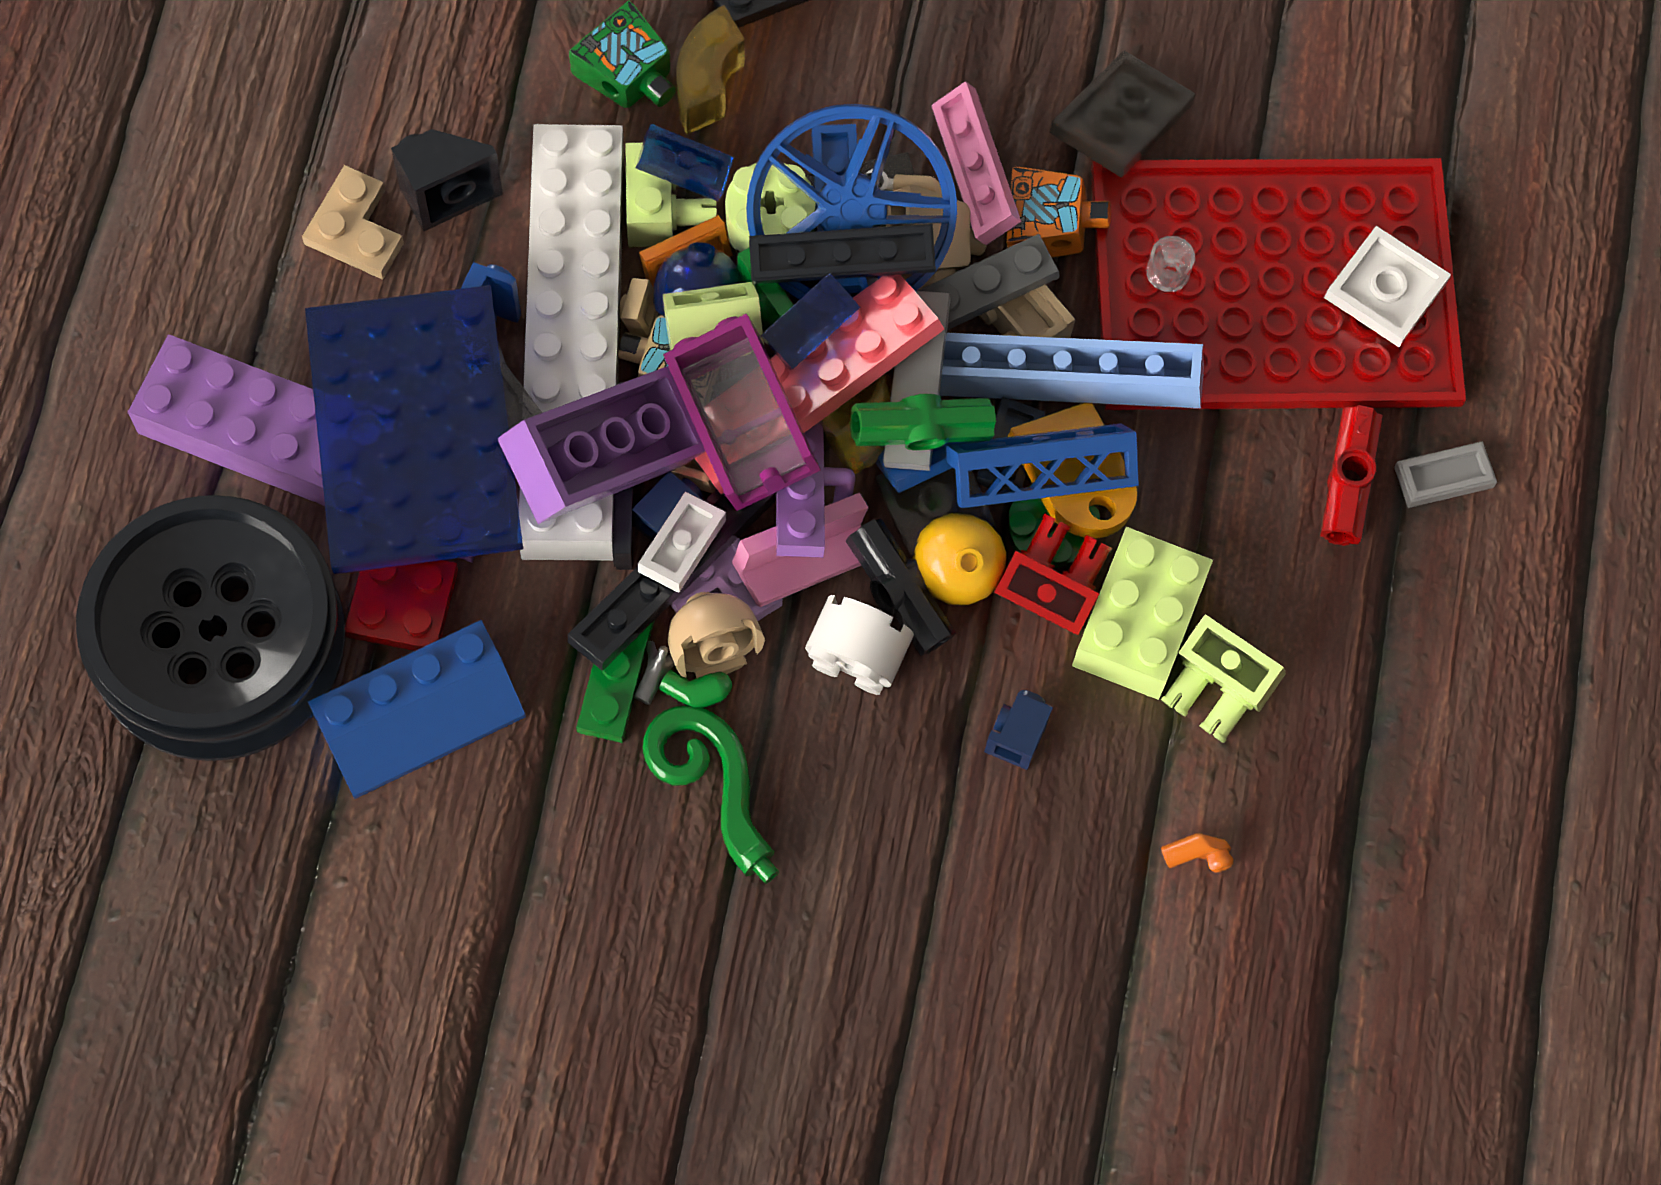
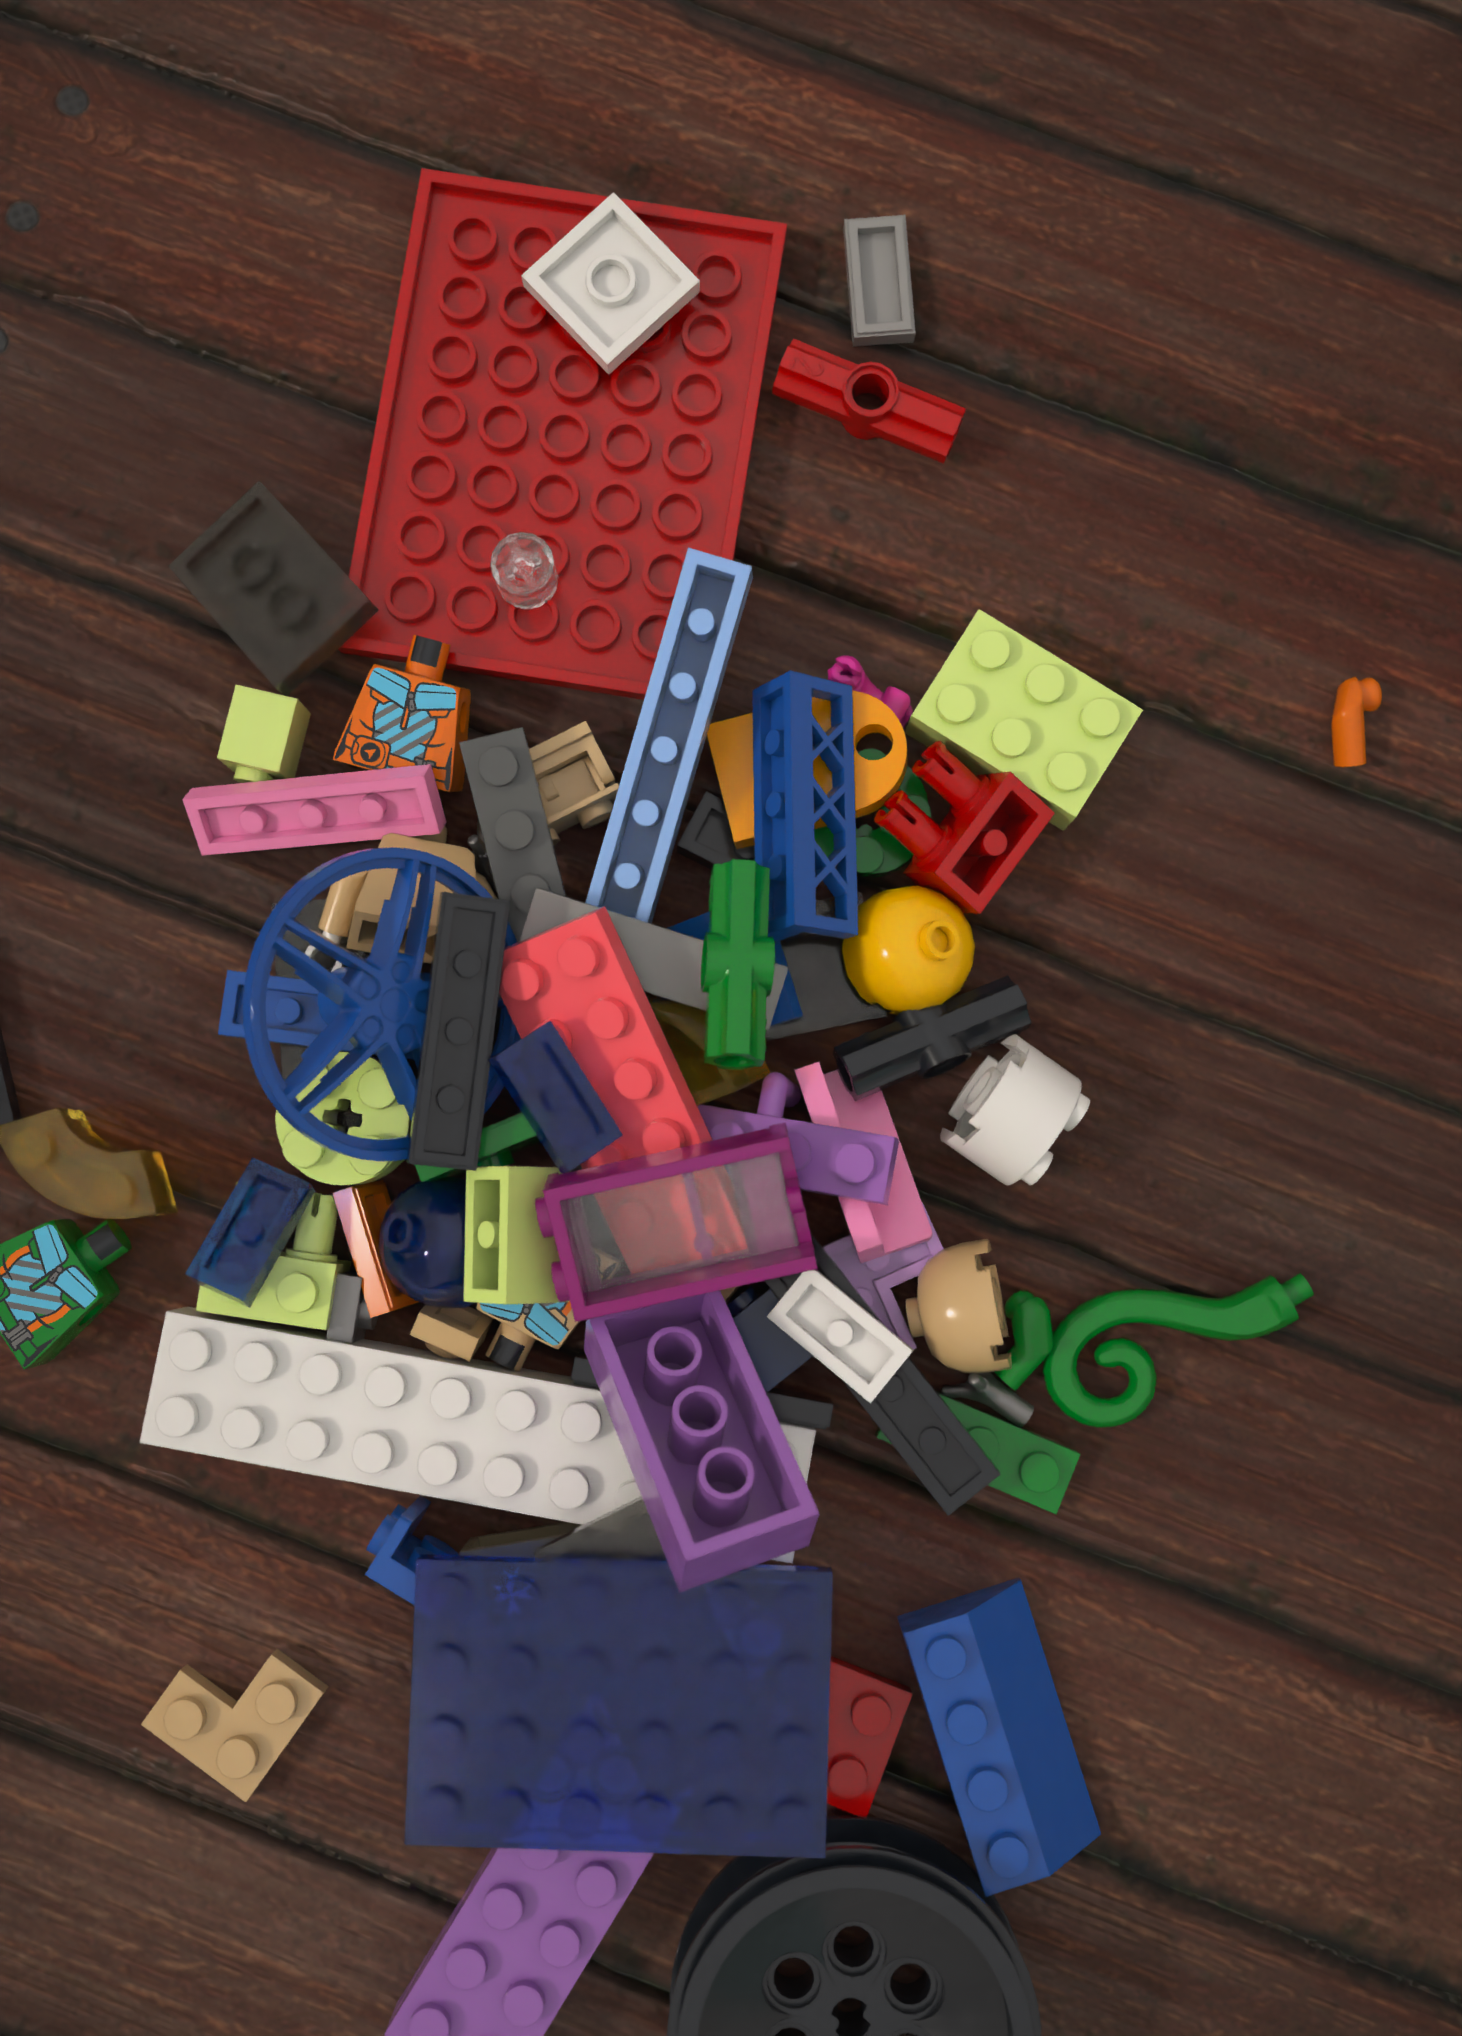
camera: 75 degrees left, 15 degrees up
(445, 175) = (197, 1590): black slope -> none
(638, 239) = (349, 1310): none -> flat silver plate
(1019, 729) = (1155, 916): dark blue brick -> none
(1020, 127) = (263, 735): none -> yellowish green brick
(1147, 496) = (850, 672): none -> dark pink arm
(1235, 665) = (1120, 617): yellowish green brick -> none

